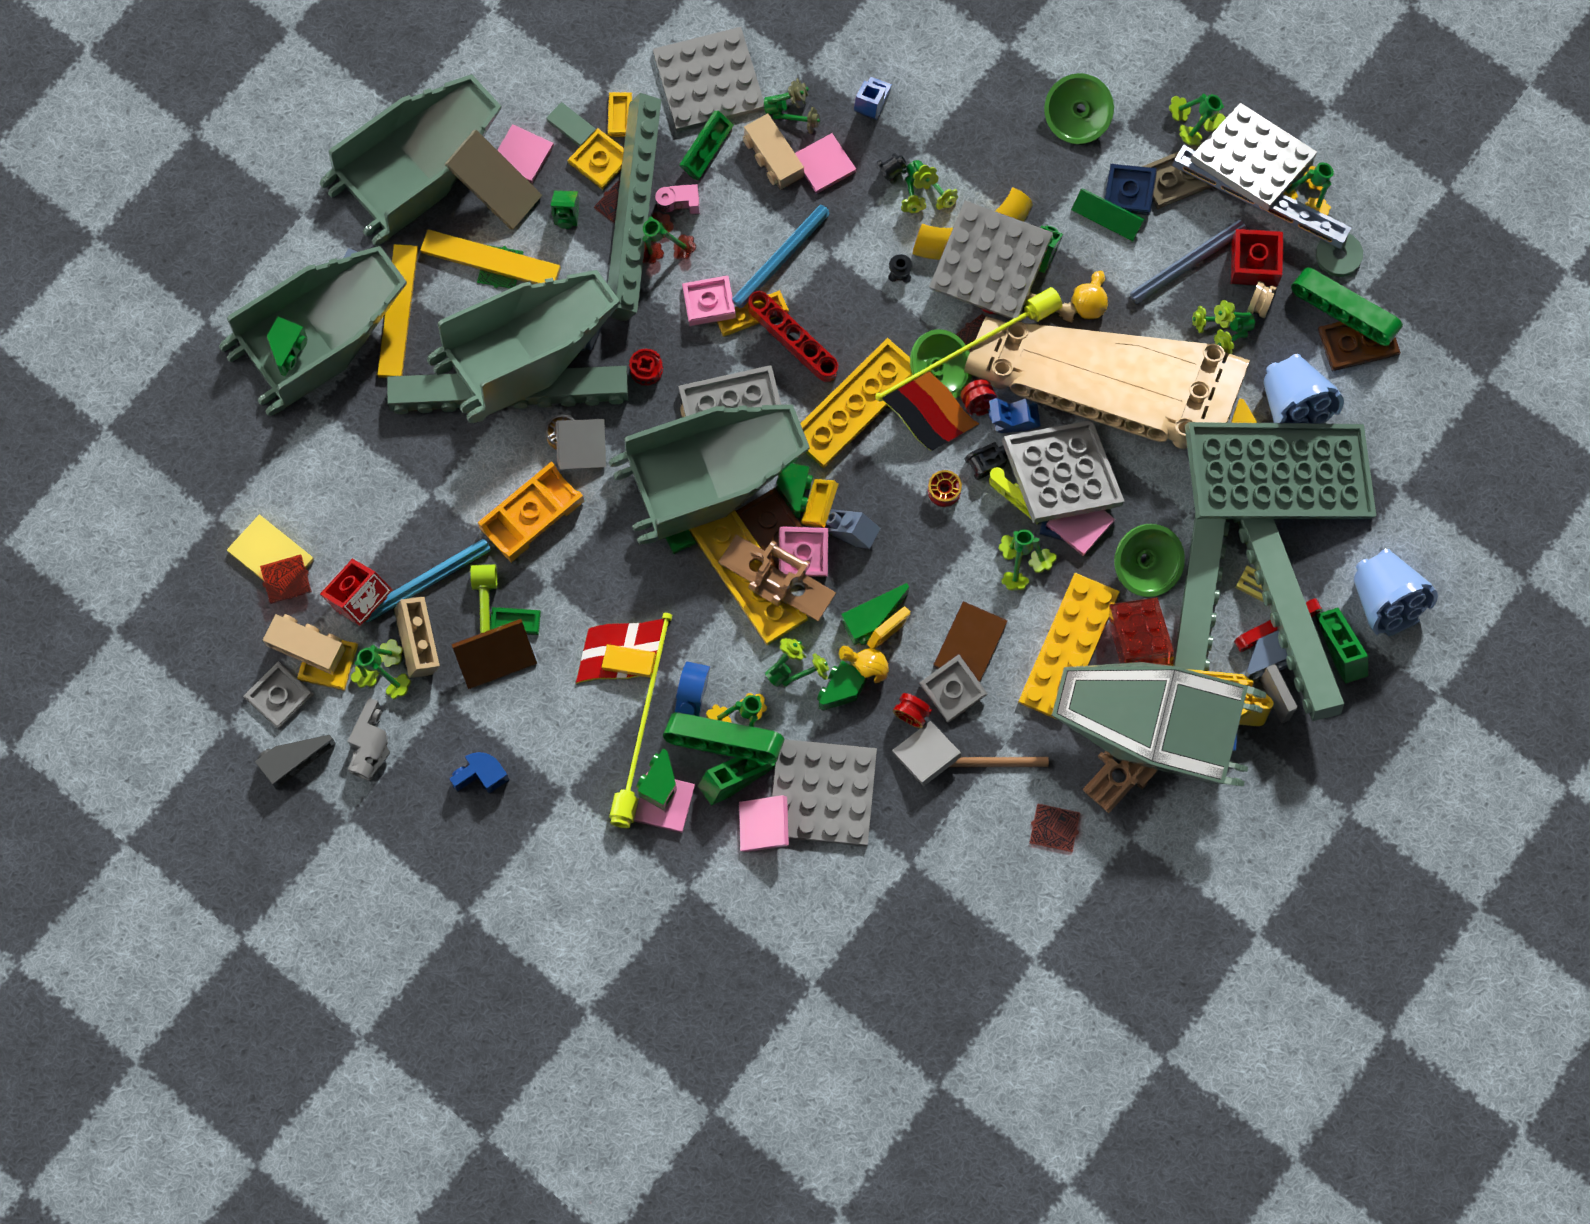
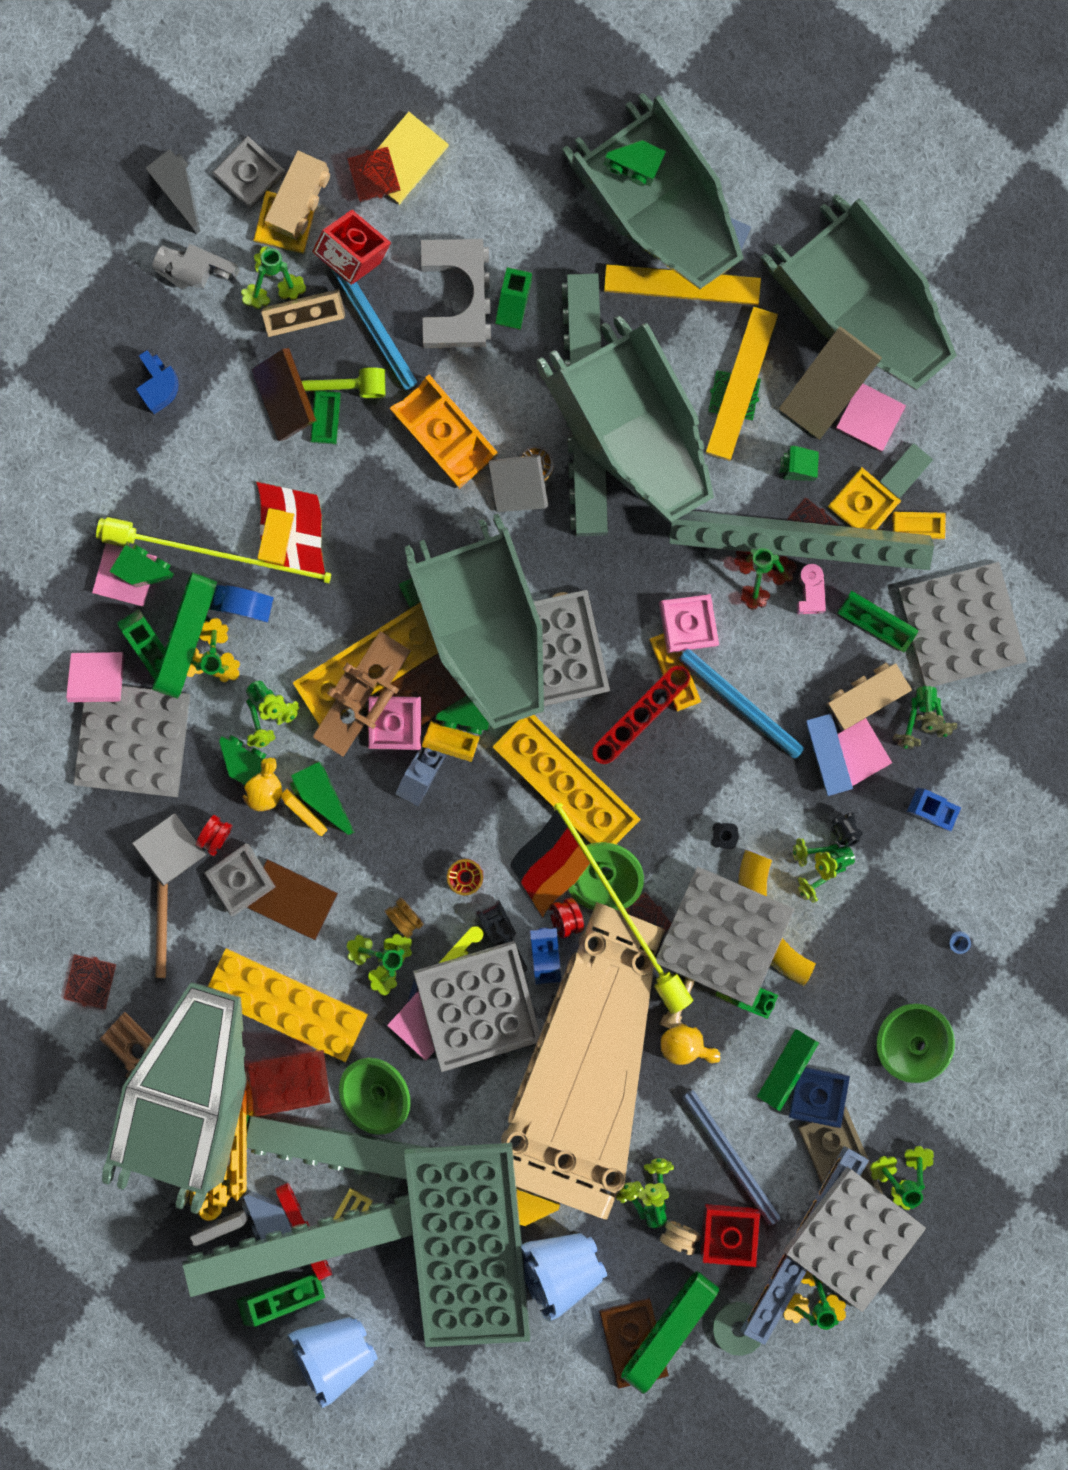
camera: 95 degrees right, 15 degrees up
(371, 491) = (470, 326): none -> light grey arch
(407, 451) = (513, 298): none -> green slope
(646, 366) = (611, 554): red wheel -> none
(826, 182) = (829, 754): none -> medium blue tile
(984, 539) = (404, 918): none -> pearl gold wheel
(991, 74) = (964, 944): none -> medium blue hinge

